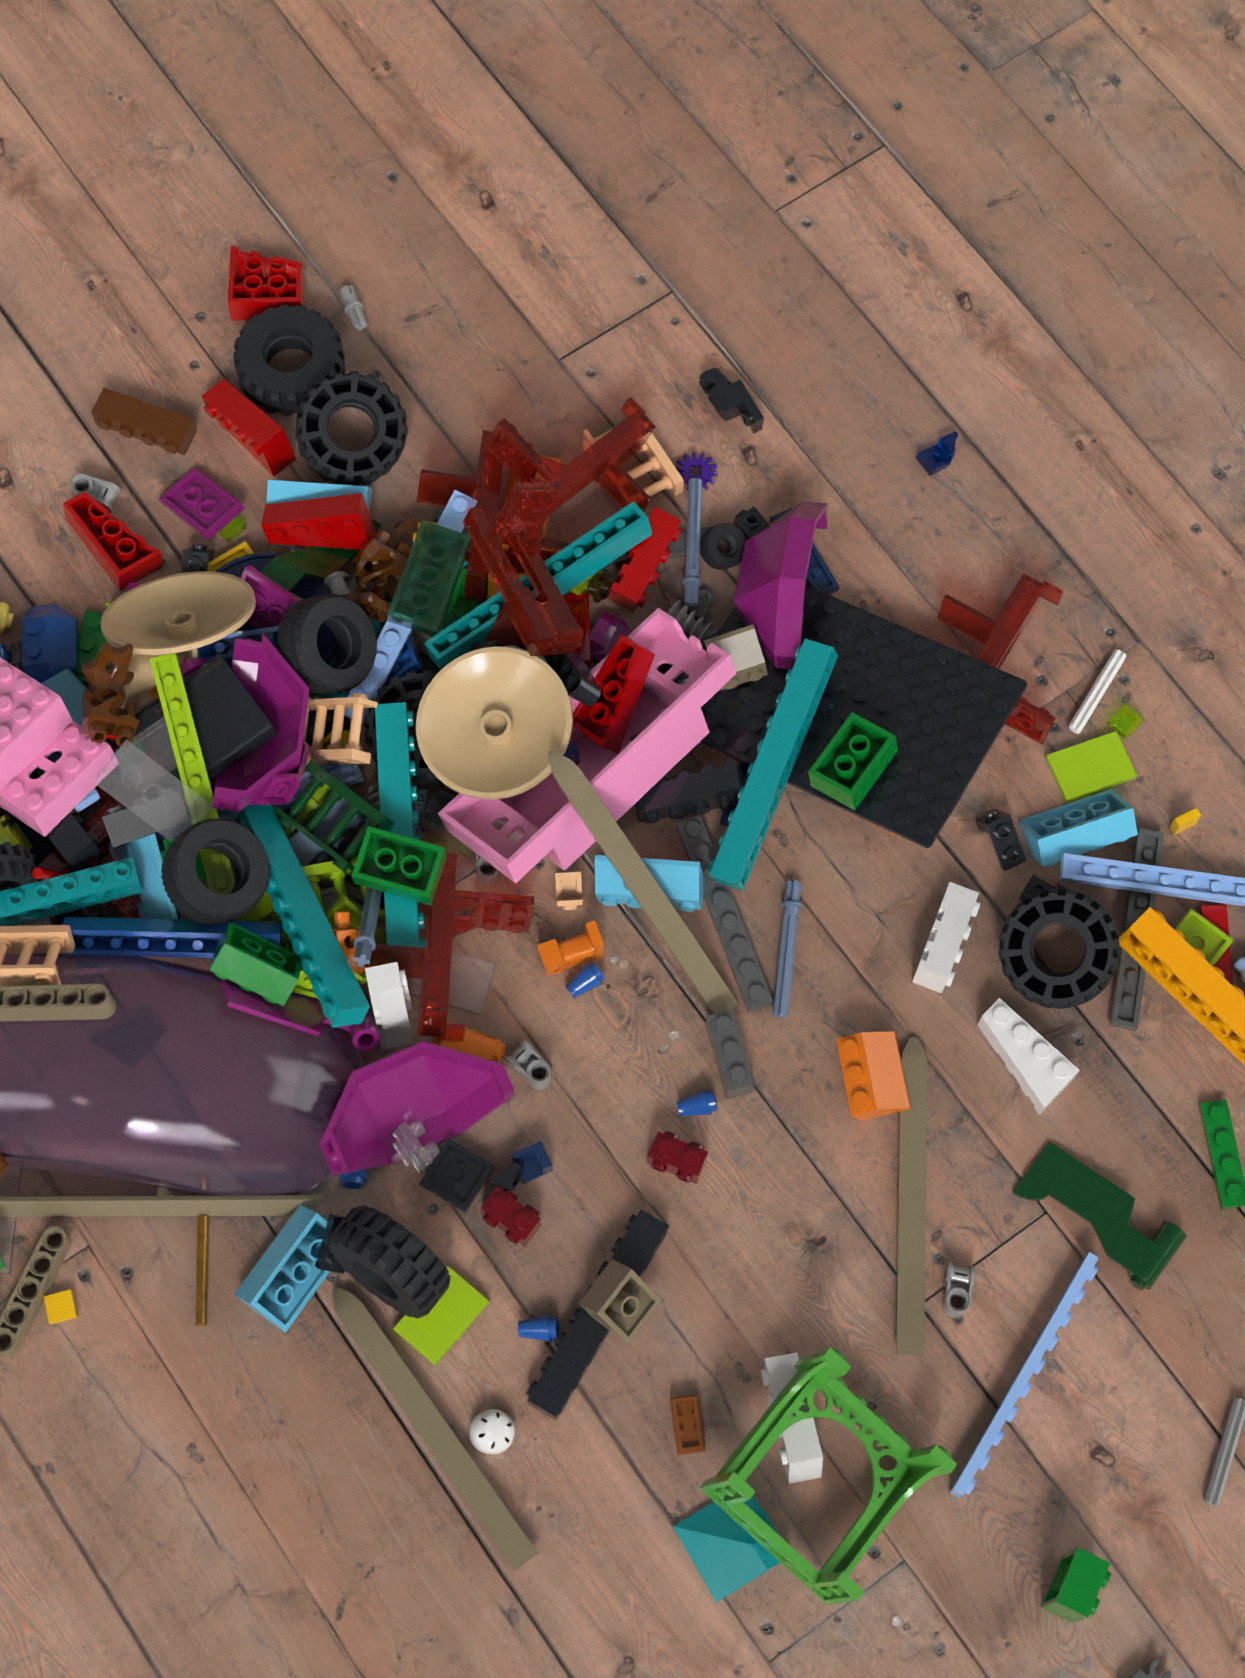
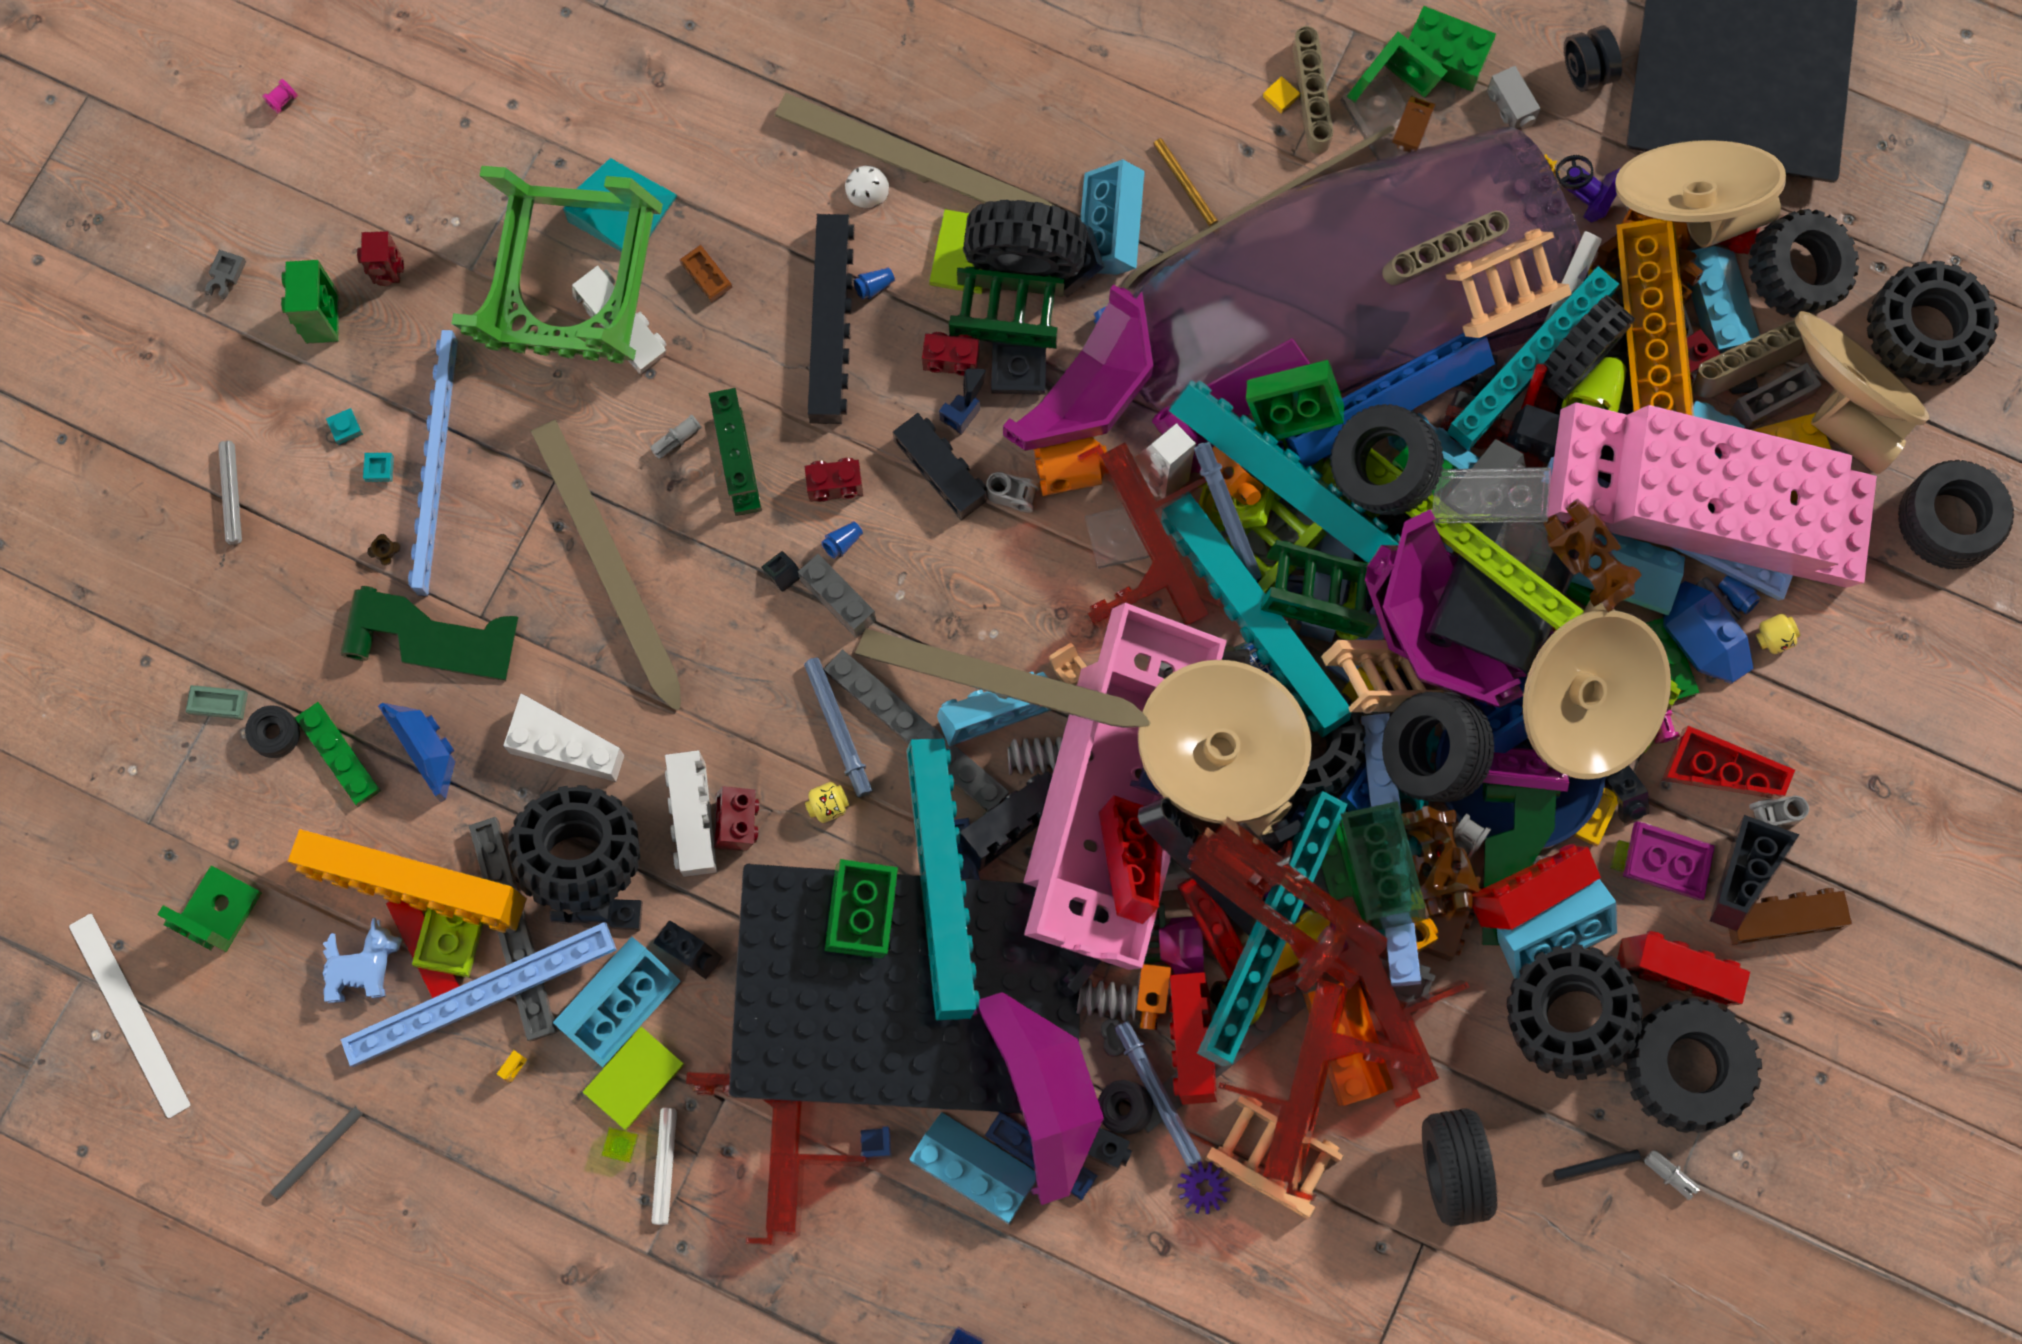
camera: 155 degrees right, 5 degrees up
(151, 456) = (1751, 864): none -> black wedge
(262, 283) = (1778, 1139): red wedge -> none
(399, 865) = (1228, 564): green brick -> none
(401, 342) = (1597, 1165): none -> black bar
(410, 1149) = (1080, 371): clear hips -> none
(462, 1216) = (1012, 332): none -> dark green fence
(507, 370) = (1459, 1167): none -> black tyre
(572, 951) = (1045, 603): orange piece -> none
(578, 1122) = (940, 466): none -> black brick
(585, 980) = (1006, 596): blue cone -> none
(620, 1301) = (813, 322): dark tan slope -> none
(643, 837) = (1033, 755): none -> light grey piece
(654, 599) = (1156, 980): none -> orange torso
(731, 399) = (1214, 1291): black plate -> none
(745, 655) = (1038, 972): slope -> none
(752, 1221) = (735, 451): none -> dark green fence
(763, 1109) = (781, 571): none -> black slope
(795, 1279) = (675, 437): none -> light grey axle
(829, 888) = (827, 802): none -> light yellow head
(860, 565) = (974, 1167): none -> medium azure slope
(873, 1074) = (695, 644): orange slope -> none
(912, 913) = (735, 818): none -> dark red brick
(926, 619) = (876, 1143): none -> dark blue panel
(958, 1284) = (529, 505): light grey piece -> none
(989, 1604) = (380, 258): none -> dark red brick
(1079, 1398) = (378, 467): none -> teal plate
(1093, 1460) = (344, 426): none -> teal plate
(1114, 1318) = (376, 549): none -> dark brown plate
(1147, 1120) = (423, 745): none -> blue wedge

